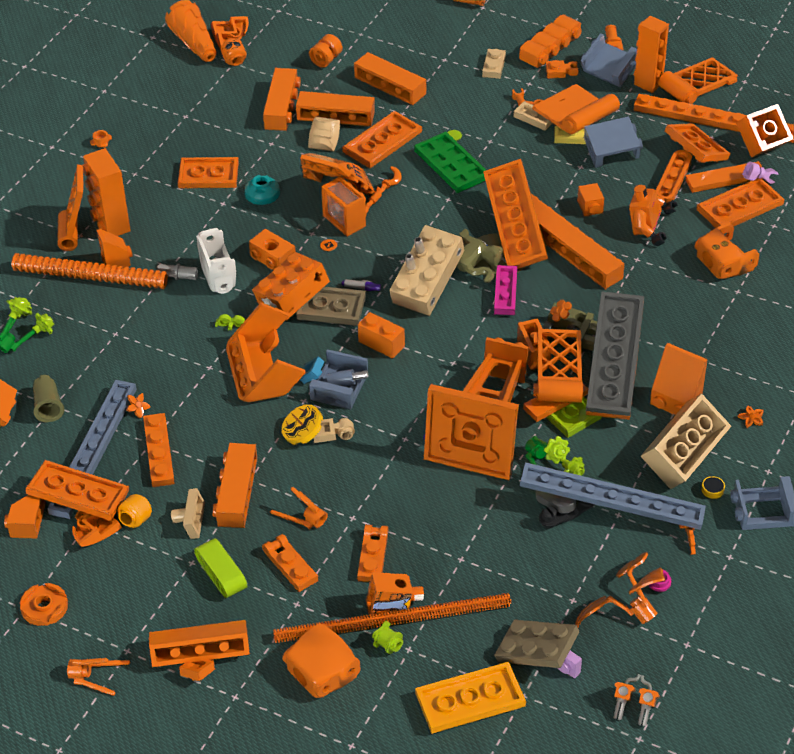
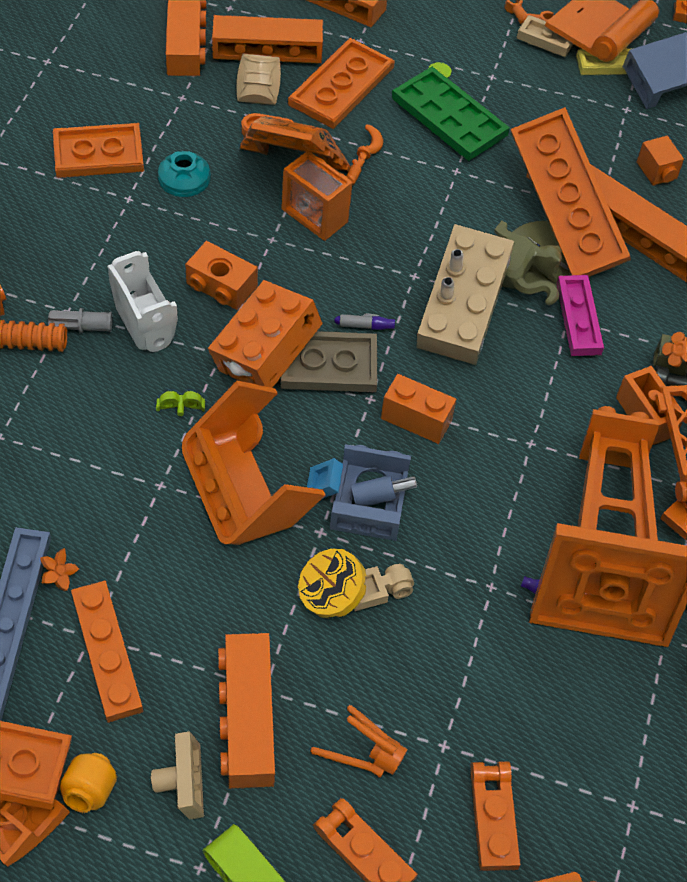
camera: 15 degrees left, 10 degrees up
(328, 245) = (300, 257): orange sticker -> none

